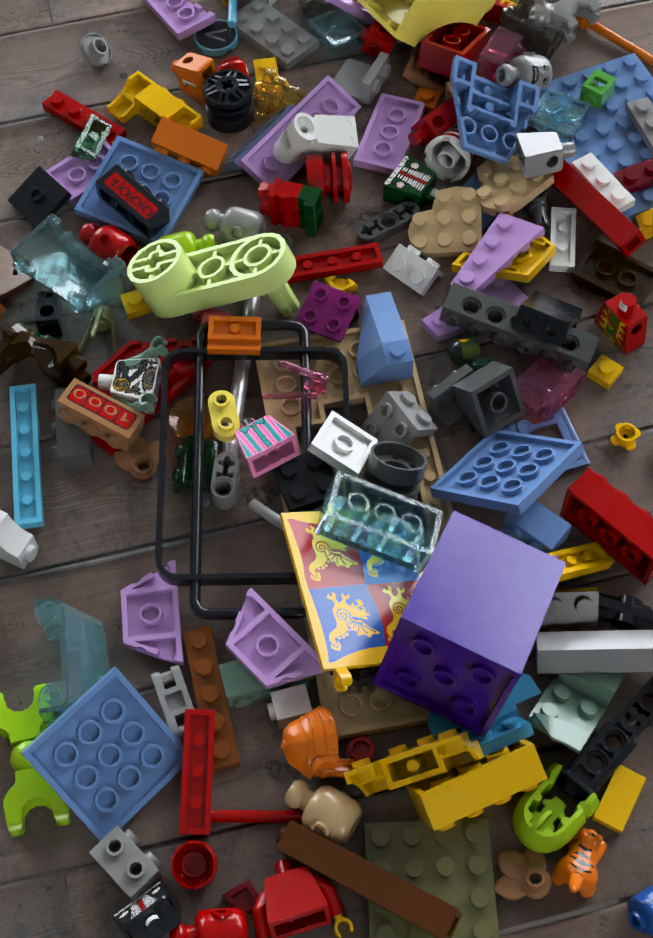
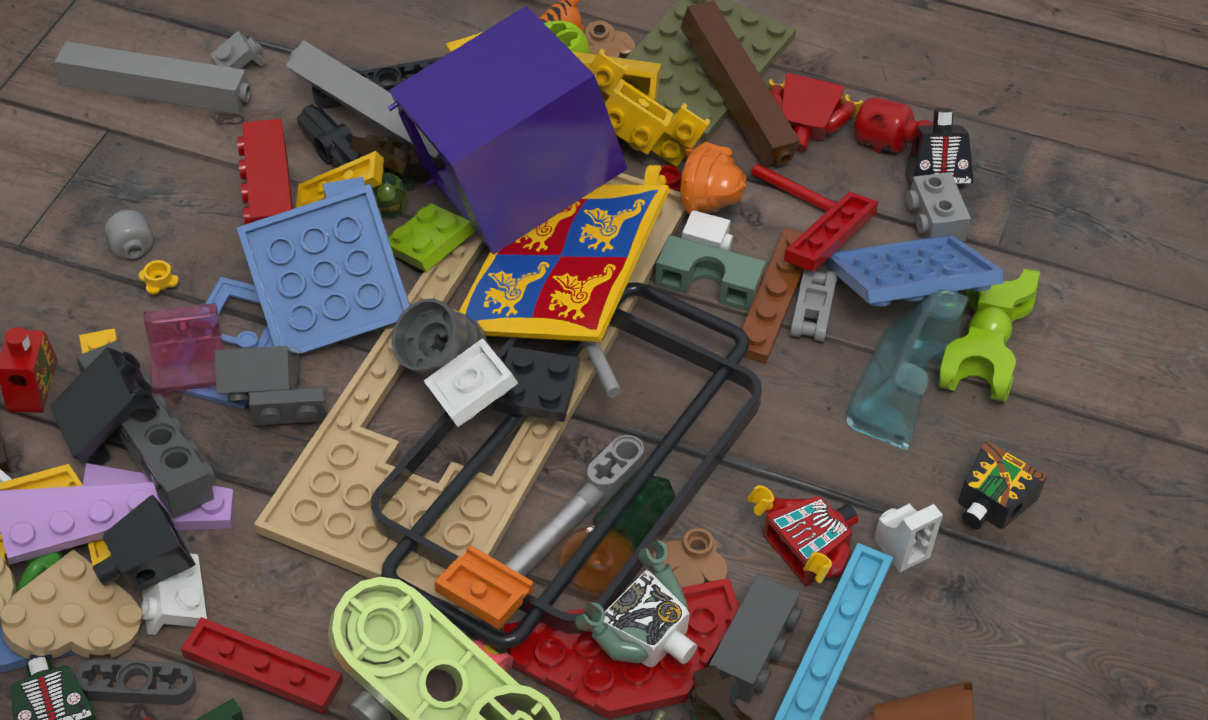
camera: 150 degrees left, 10 degrees down
(74, 507) = (806, 533): none -> torso
(100, 415) = (721, 597): medium nougat brick -> none
(153, 617) = (791, 384): lavender wing -> none
(194, 865) = (875, 175): red hair -> none
(223, 414) = (574, 495): light yellow plate -> none
(242, 896) = (846, 148): dark red tile -> none
(265, 444) = (558, 423): bright pink torso -> none
(270, 645) = (695, 266): lavender wing -> none
(315, 382) = (441, 473): clear pink plant -> none
(325, 810) = (740, 134): tan piece -> none
(329, 311) = (318, 581): magenta bracket -> none
(341, 284) = (279, 631): yellow tile -> none
(379, 522) = (504, 286): clear light blue brick -> none
(383, 343) = (312, 491): medium blue wedge -> none
(398, 419) = (380, 398): light grey bracket -> none
(434, 256) = (144, 548): none -> black torso
(467, 352) = (223, 442): clear green piece -> none

